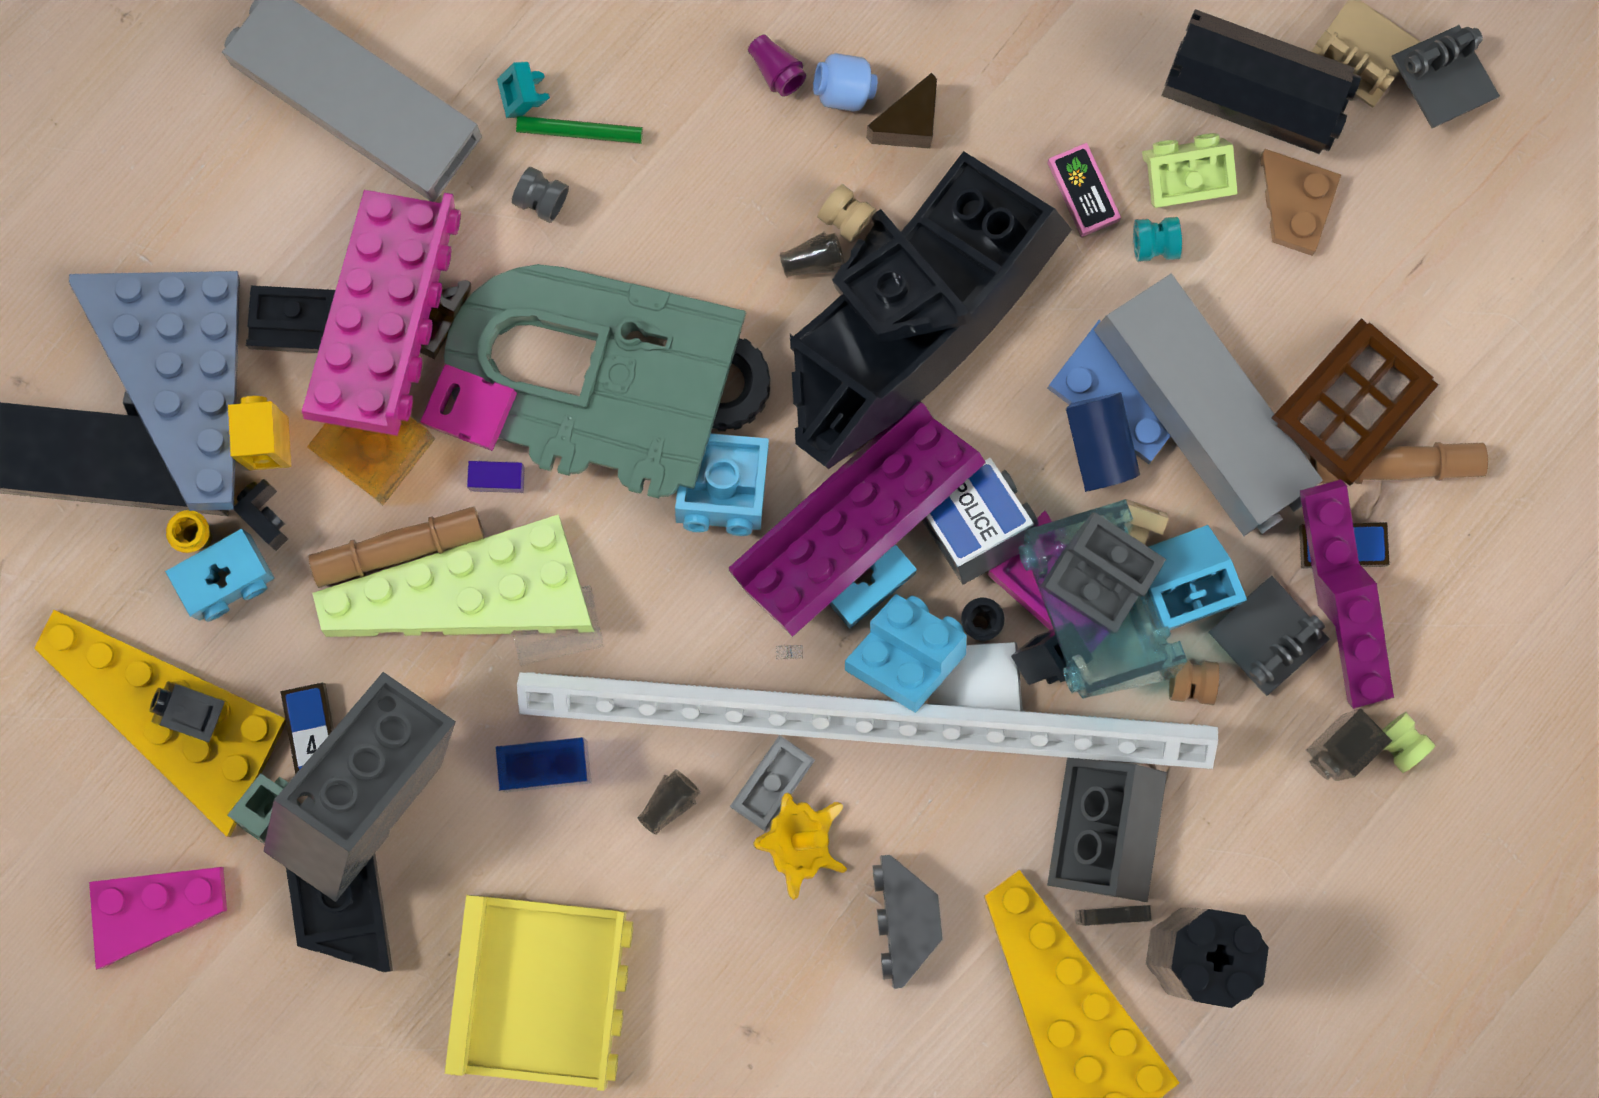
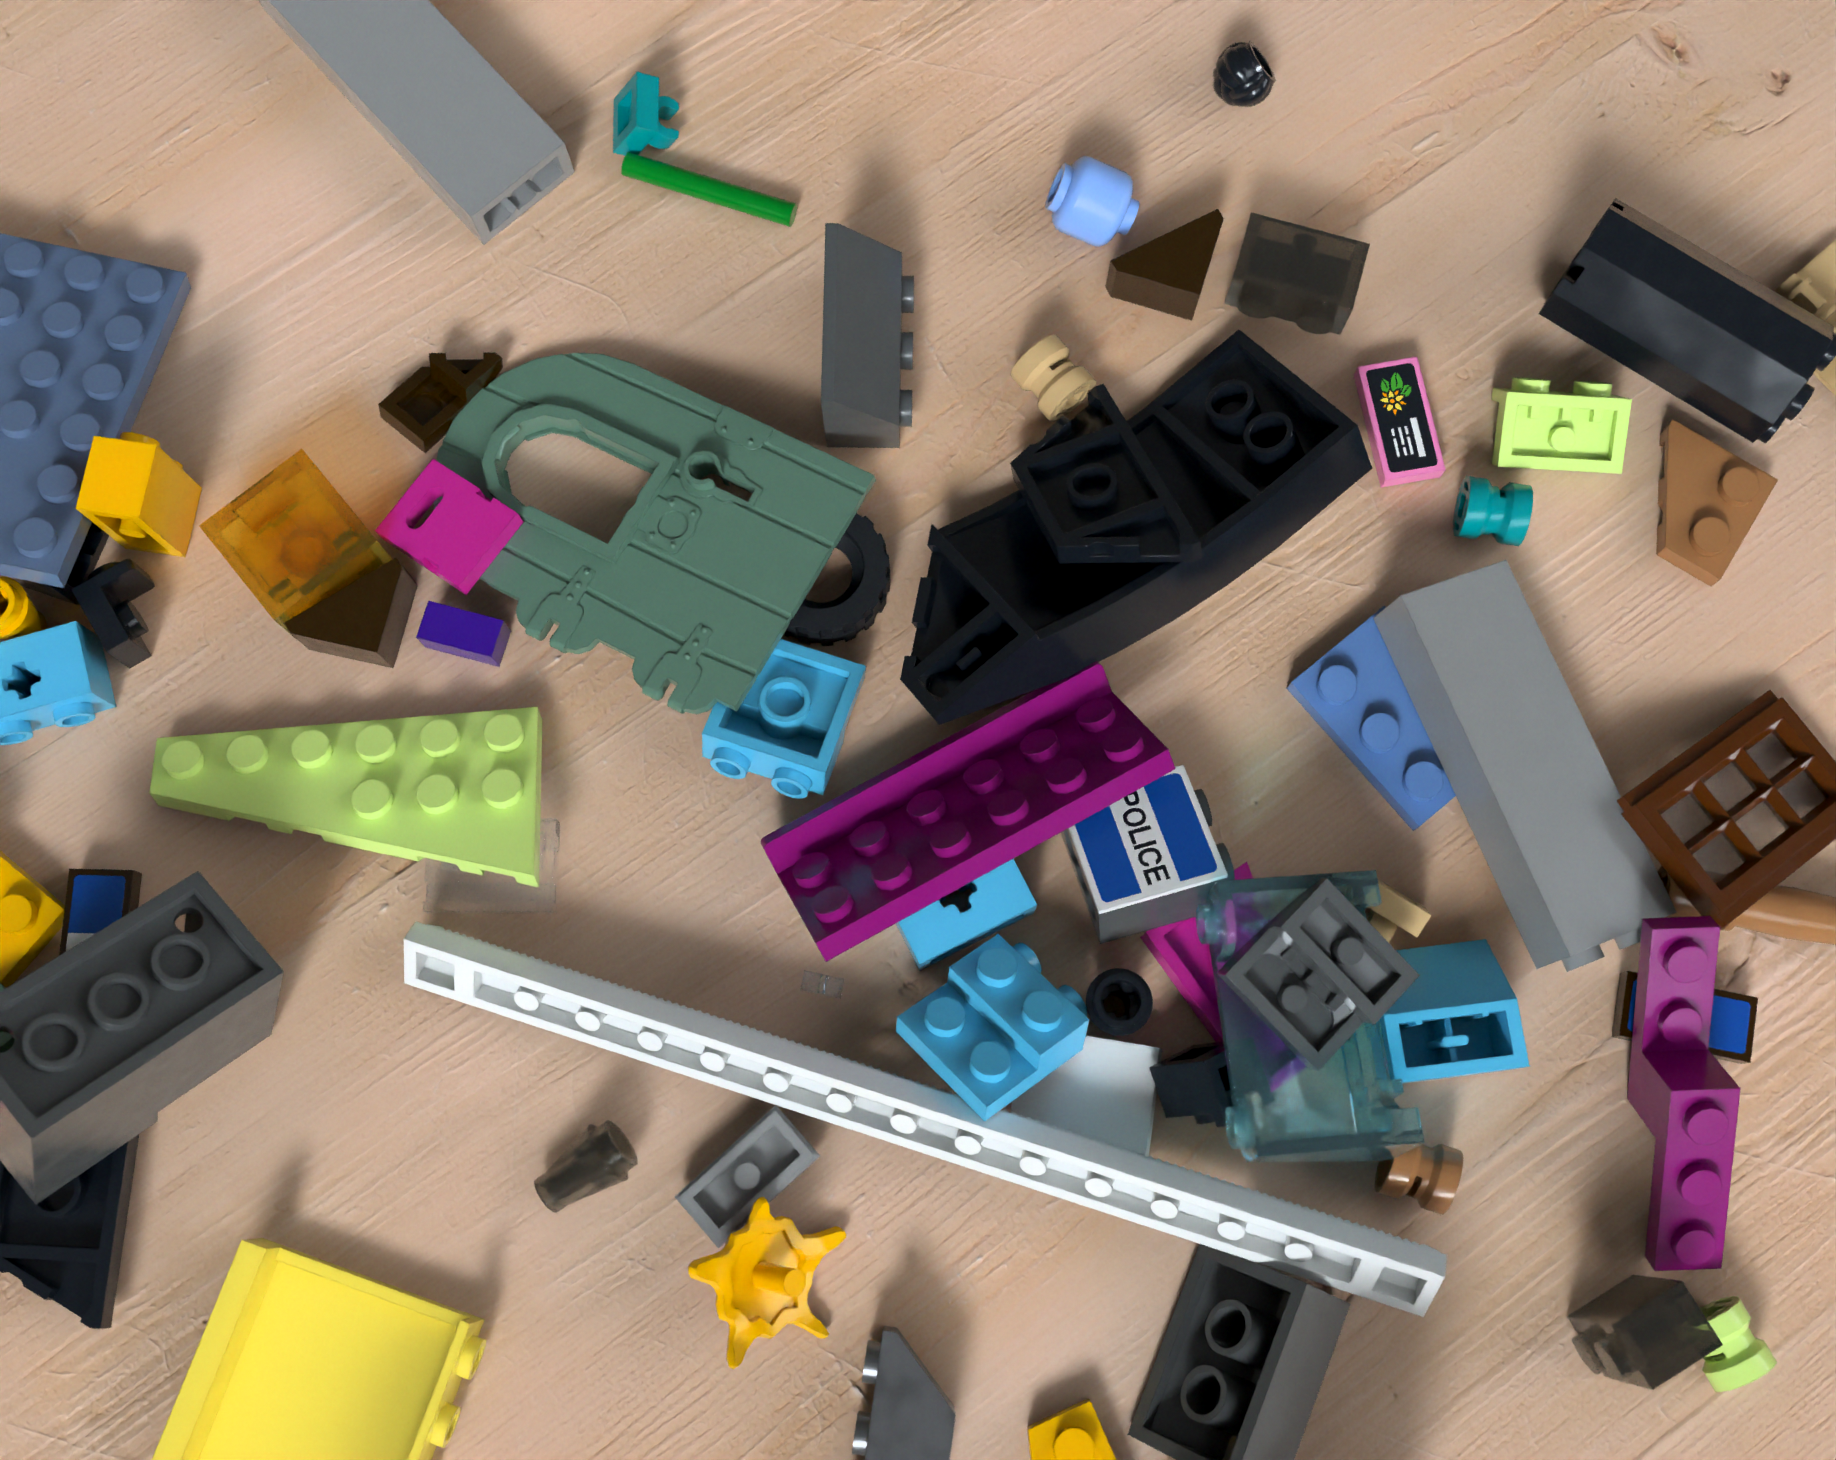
camera: 15 degrees right, 5 degrees down
(287, 318) = (241, 353): black plate -> none
(382, 312) = (357, 368): dark pink bracket -> none
(396, 547) = (293, 700): medium nougat piece -> none
(426, 484) = (362, 618): none -> dark brown slope
(539, 194) = (627, 258): dark grey wheel -> none
(543, 765) = (412, 1067): clear blue brick -> none
(716, 218) = (864, 341): none -> dark grey slope
(778, 67) = (1004, 163): magenta cone -> none
(813, 256) = (993, 427): clear smoke cone -> none
(994, 104) = (1296, 274): none -> clear smoke brick
(1102, 441) = (1355, 780): dark blue brick -> none
(1269, 635) = (1547, 1128): dark grey hinge -> none

